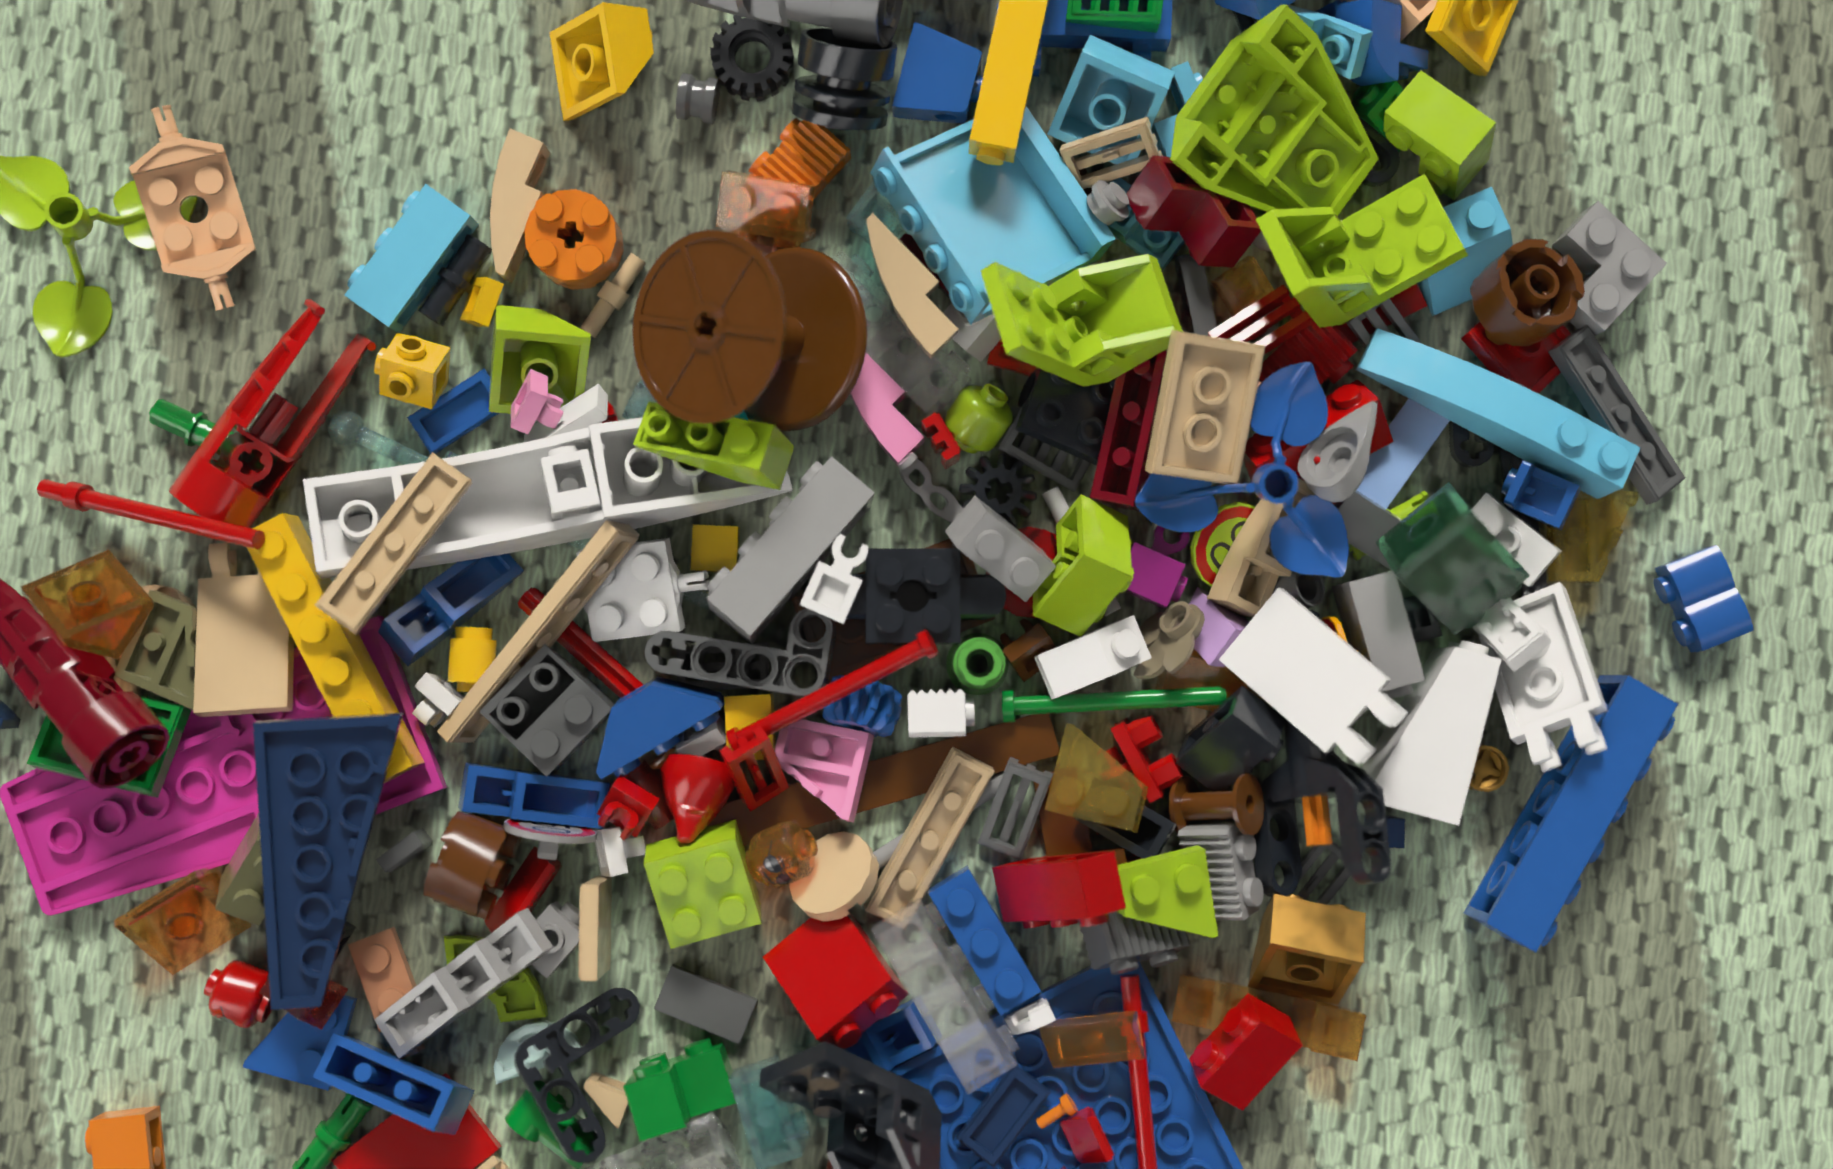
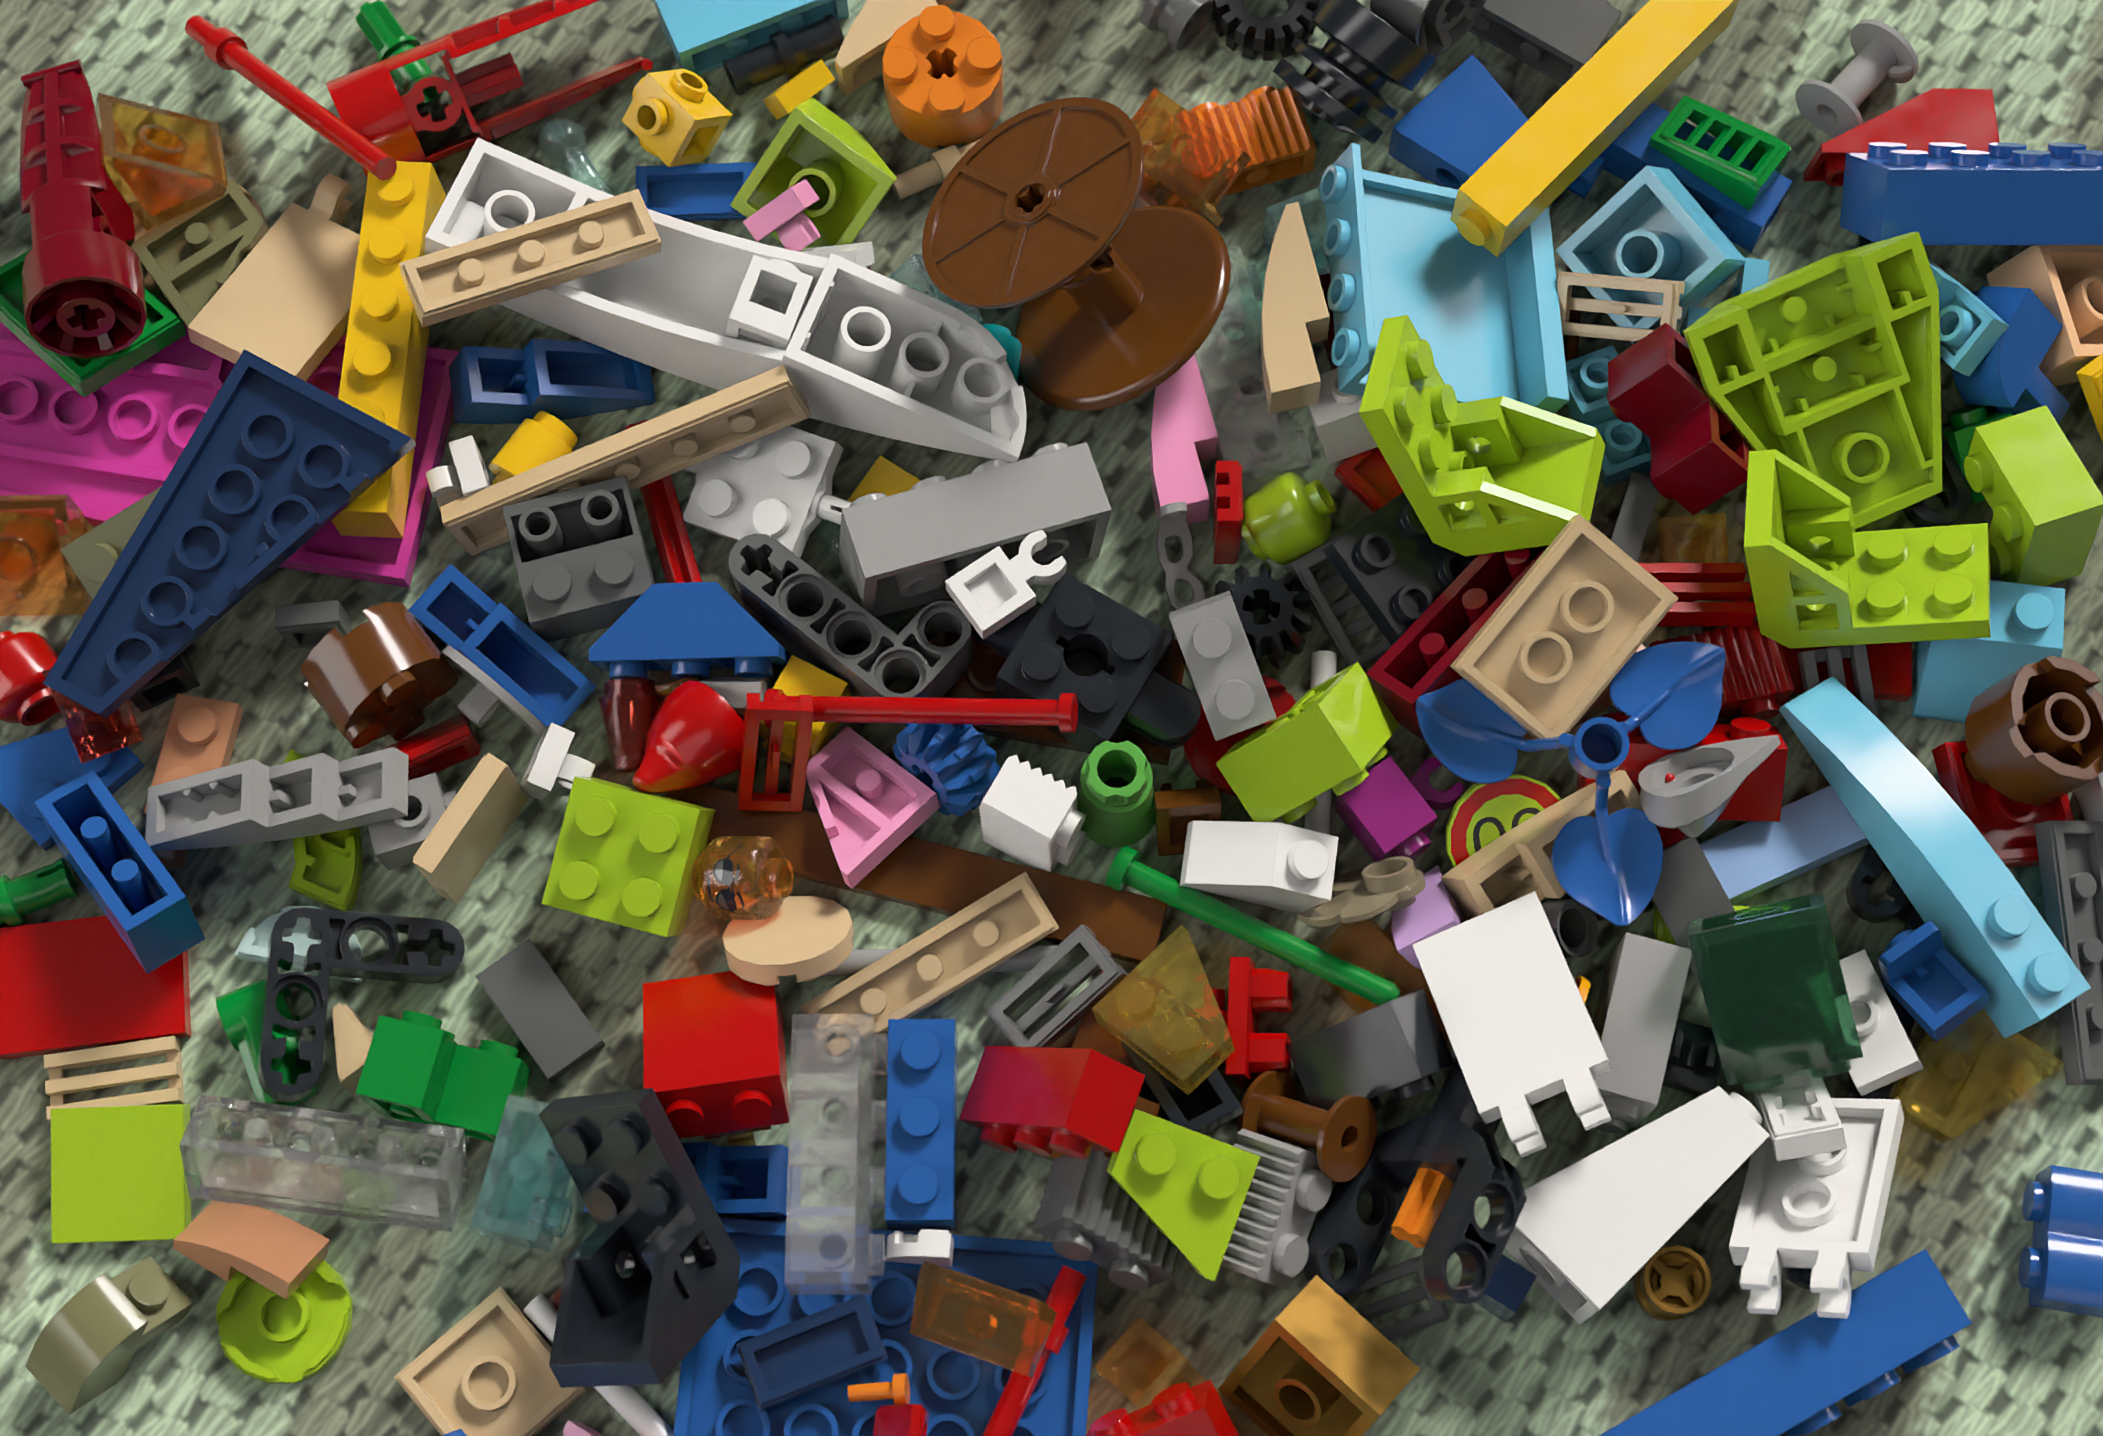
camera: 30 degrees right, 15 degrees down
(627, 807) = (599, 715): red tile -> none
(730, 448) = (966, 353): lime slope -> none
(1108, 202) = (1584, 357): light grey plate -> none

